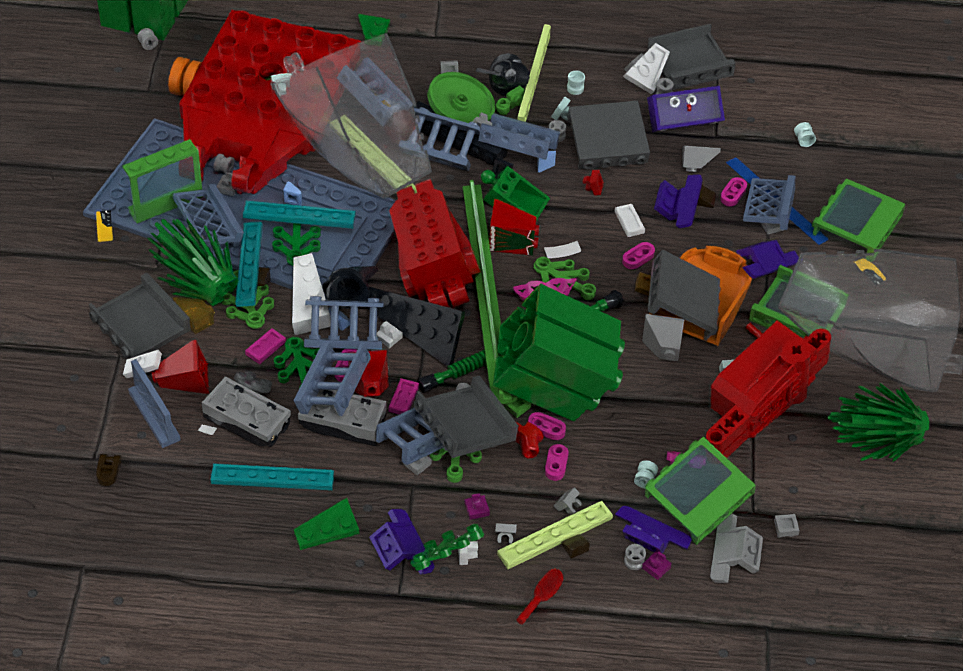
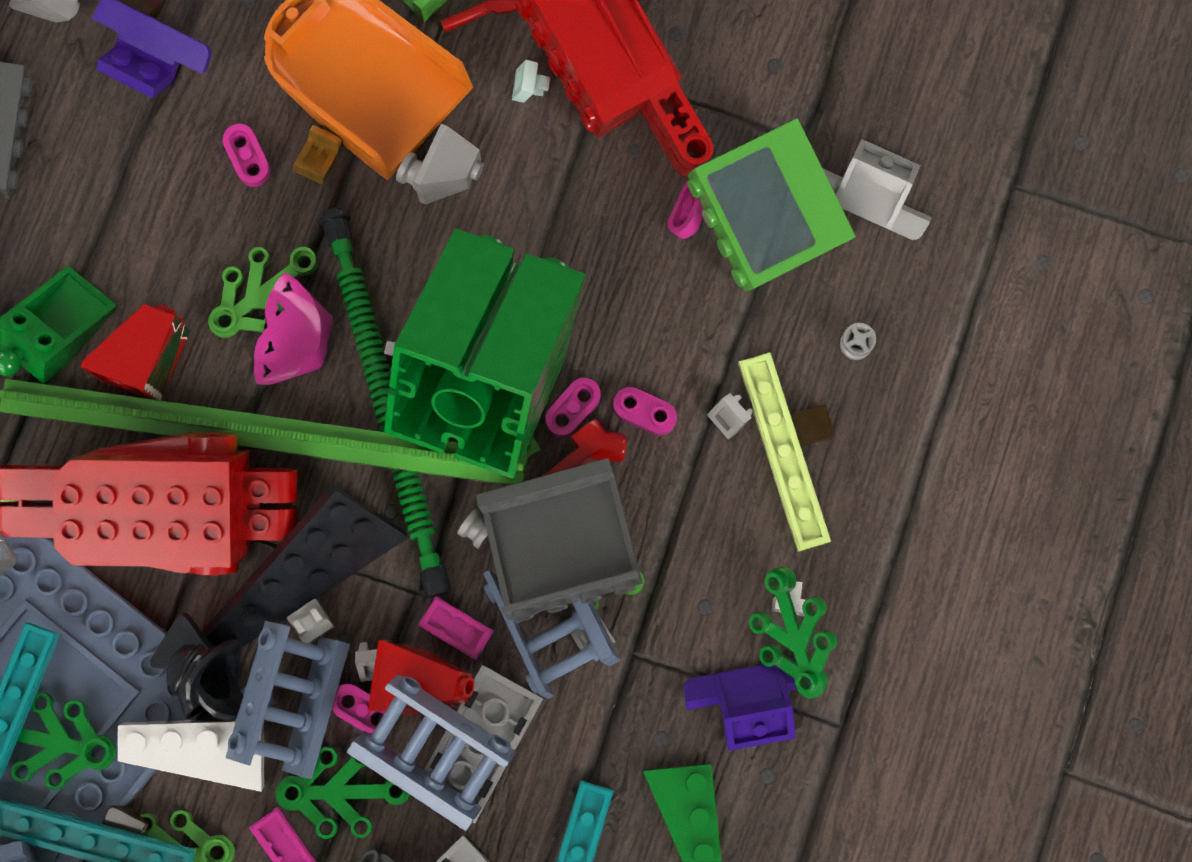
camera: 75 degrees left, 30 degrees up
(477, 506) = (704, 561): magenta tile -> none
(505, 529) = (766, 527): light grey tile -> none
(544, 591) = (883, 496): red piece -> none
(562, 251) = (193, 277): white sticker -> none
(594, 182) = (59, 181): red tile -> none
(629, 220) = (157, 146): white tile -> none
(646, 471) = (708, 278): light aqua wheel -> none
(650, 532) = (815, 305): dark purple plate -> none
(657, 565) = (875, 311): magenta tile -> none
(685, 292) = (377, 106): dark grey panel -> none
(786, 525) = (855, 97): light grey tile -> none

